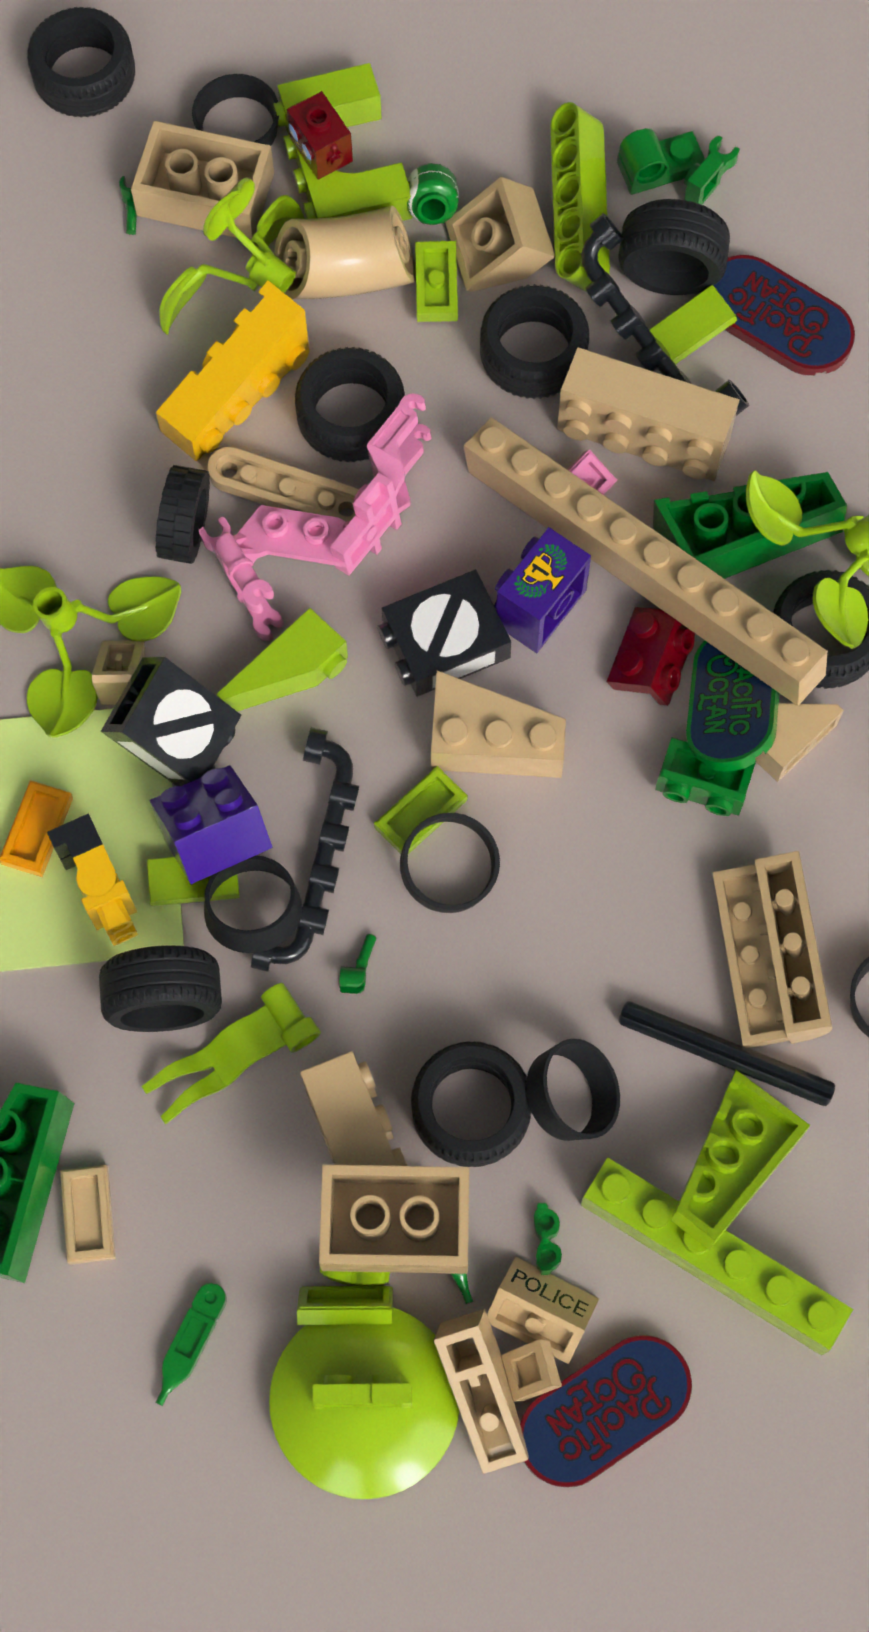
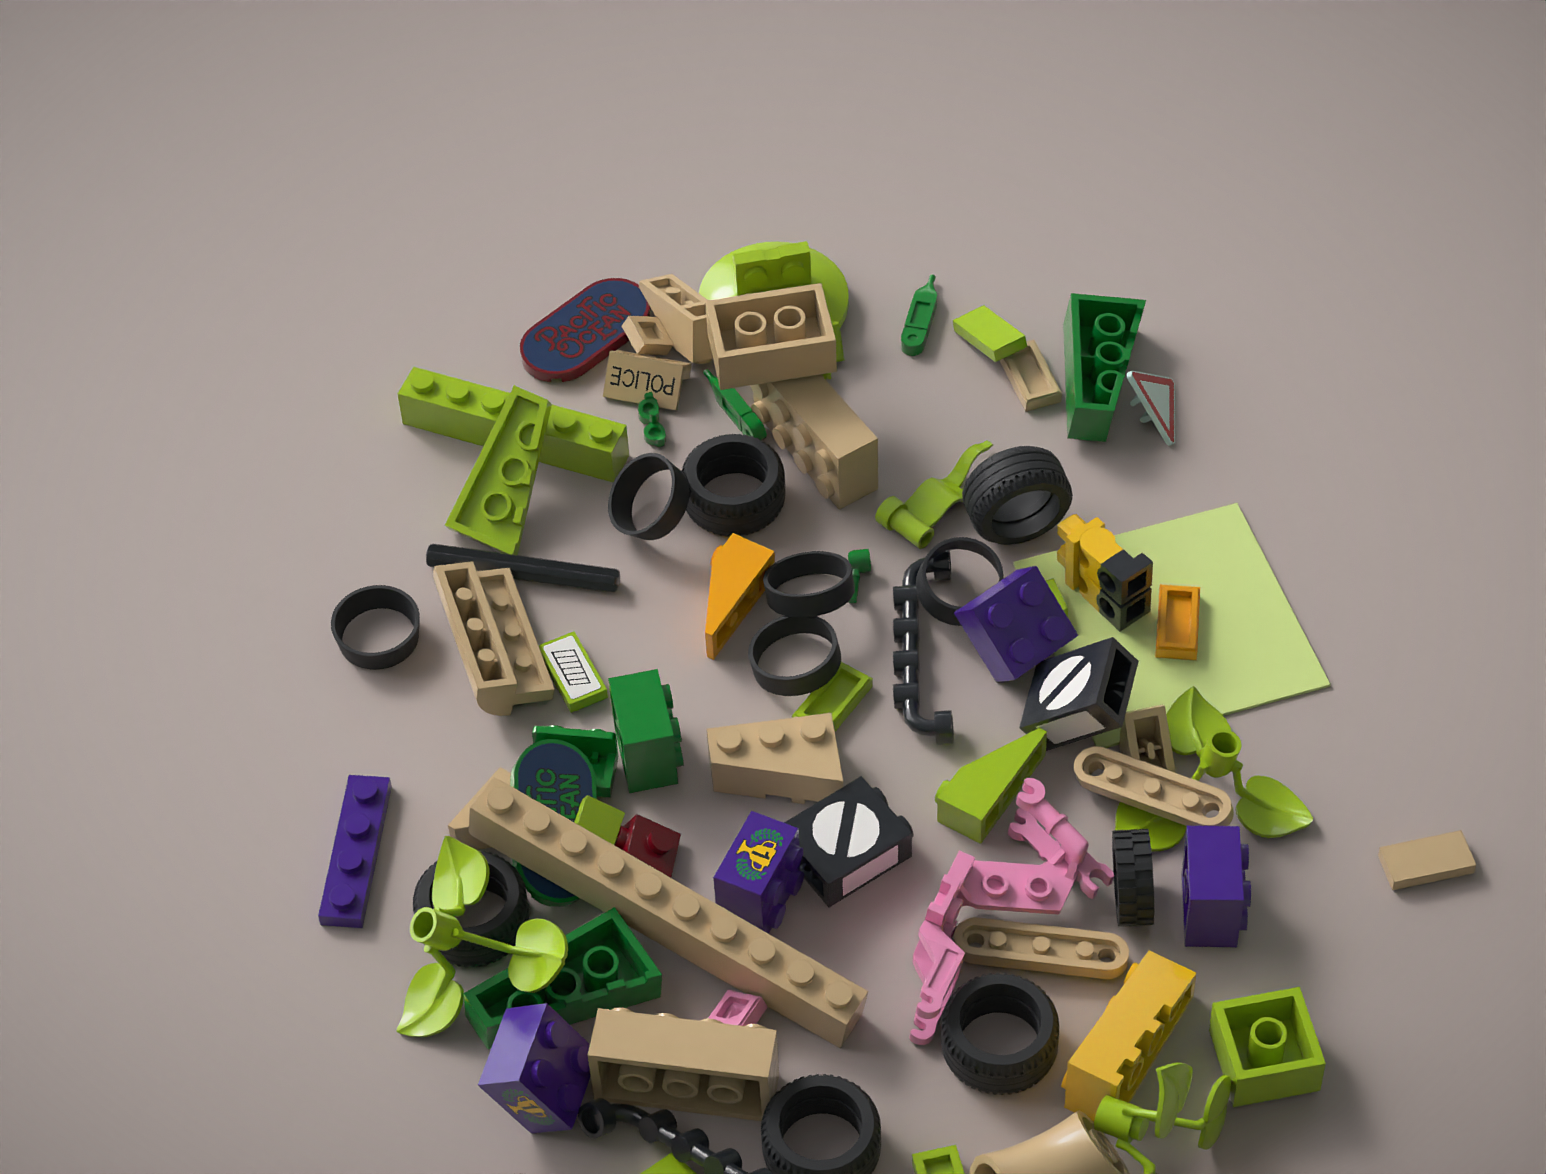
camera: 170 degrees right, 20 degrees down
(109, 492) = (1214, 886): none -> dark purple brick
(116, 339) = (1267, 1046): none -> lime brick
(117, 1278) = (989, 333): none -> lime tile
(129, 608) = (1152, 788): none -> tan plate
(423, 989) = (814, 603): none -> black tyre
(493, 972) = (733, 588): none -> light orange slope
(629, 779) = (646, 730): none -> green brick
(688, 904) = (573, 672): none -> tile
(691, 683) = (599, 818): none -> lime tile
(783, 428) = (537, 1069): none -> brick

